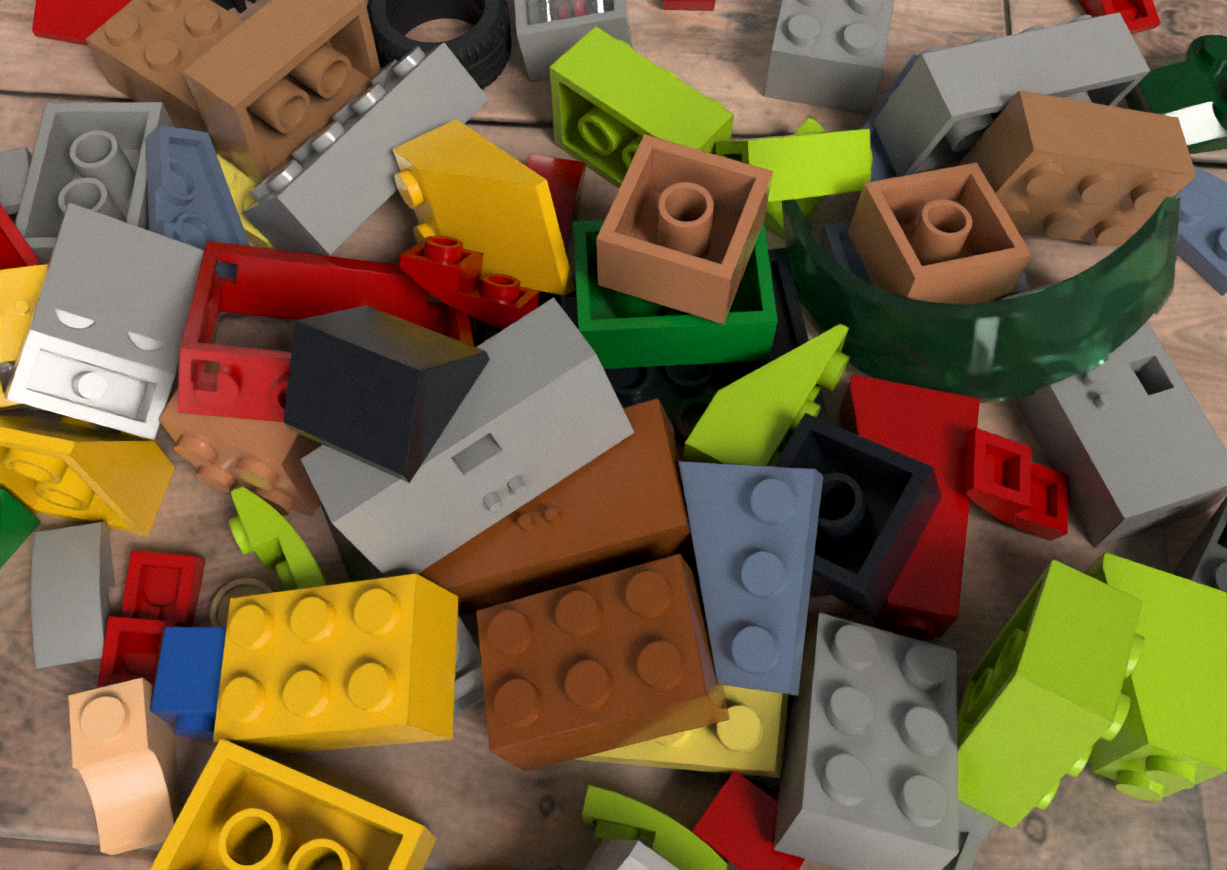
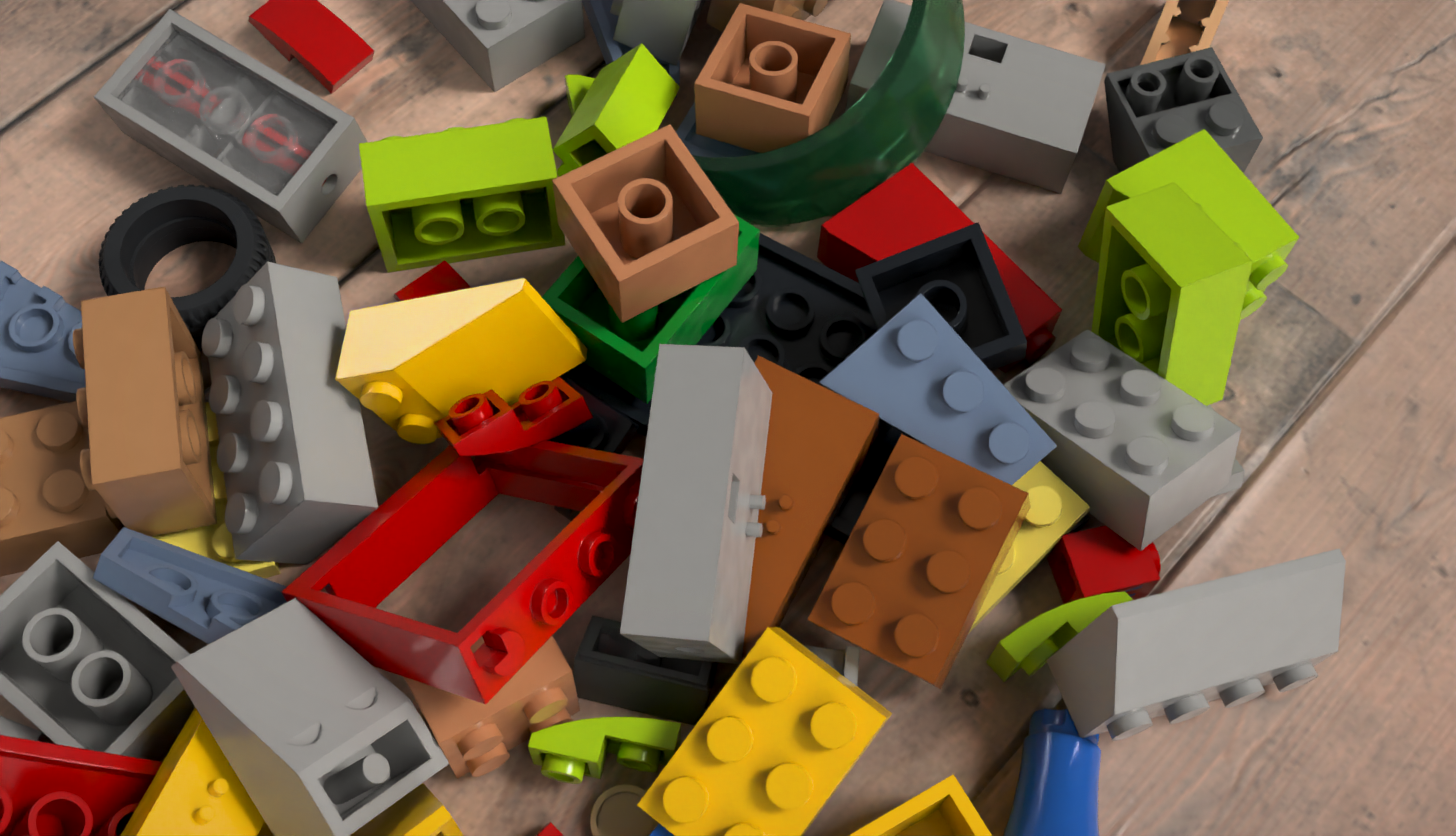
camera: 55 degrees left, 0 degrees up
(377, 386) = (627, 523): black slope -> none
(761, 411) = (811, 313): lime slope -> none
(1013, 487) = (991, 196): red slope -> none

